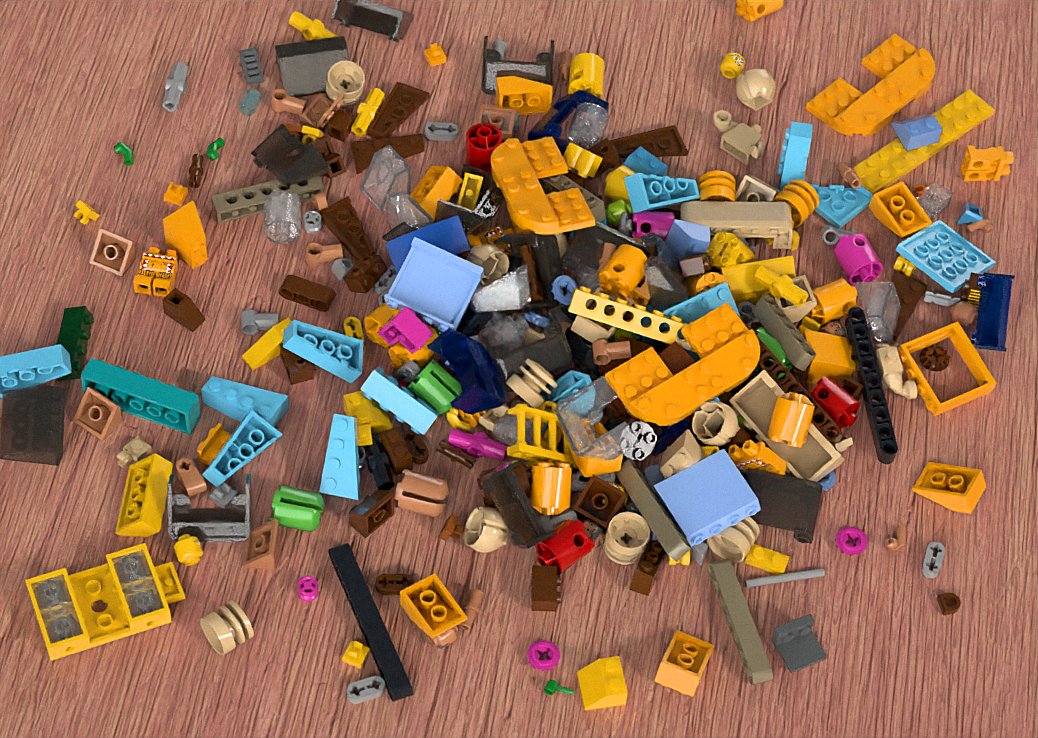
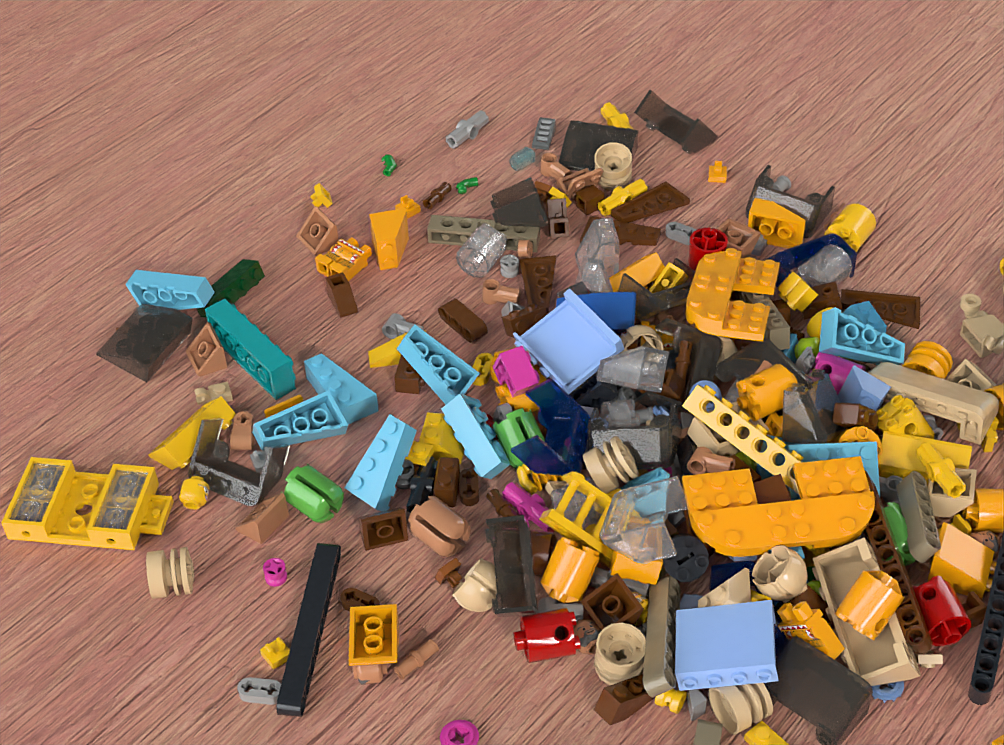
camera: 35 degrees right, 10 degrees down
(544, 588) = (502, 669): reddish brown brick -> none

